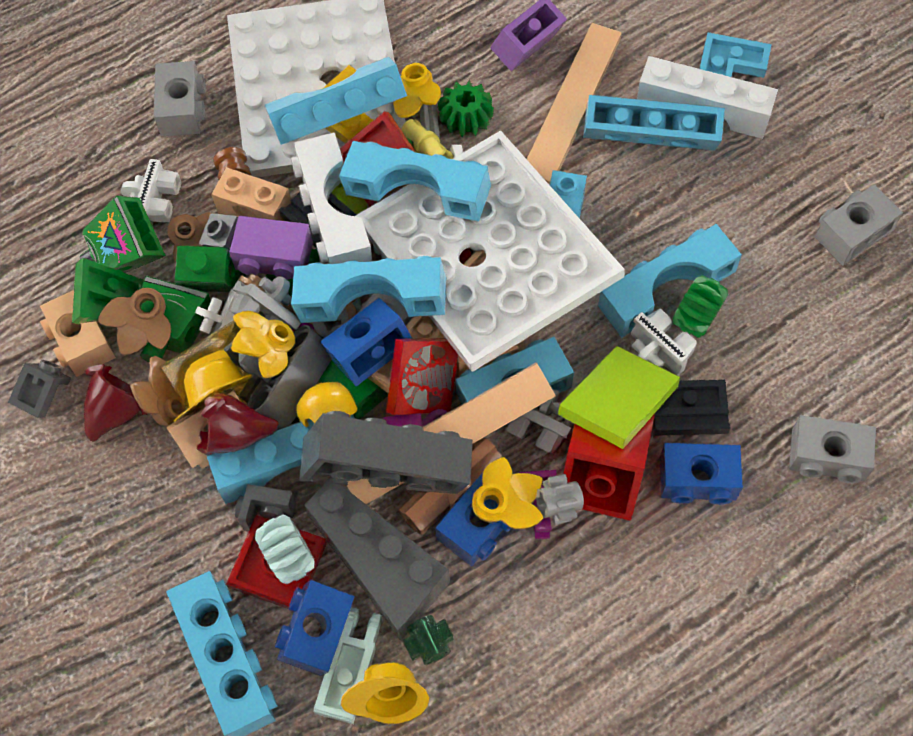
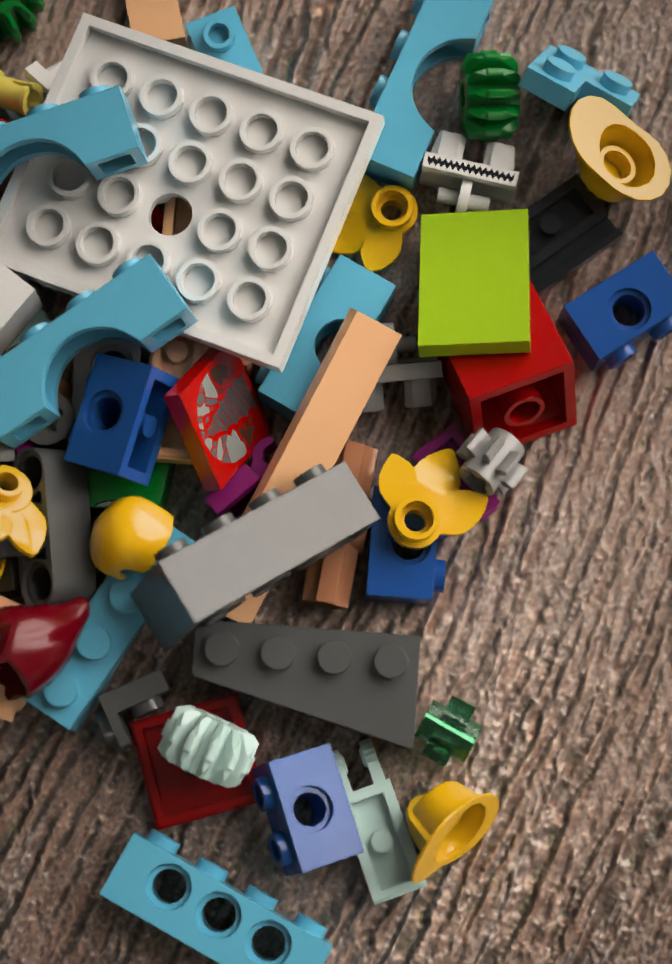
camera: 40 degrees left, 15 degrees up
(582, 333) = (369, 231): none -> yellow plate
(753, 378) = (615, 154): none -> yellow piece
(755, 322) = (563, 77): none -> medium azure plate

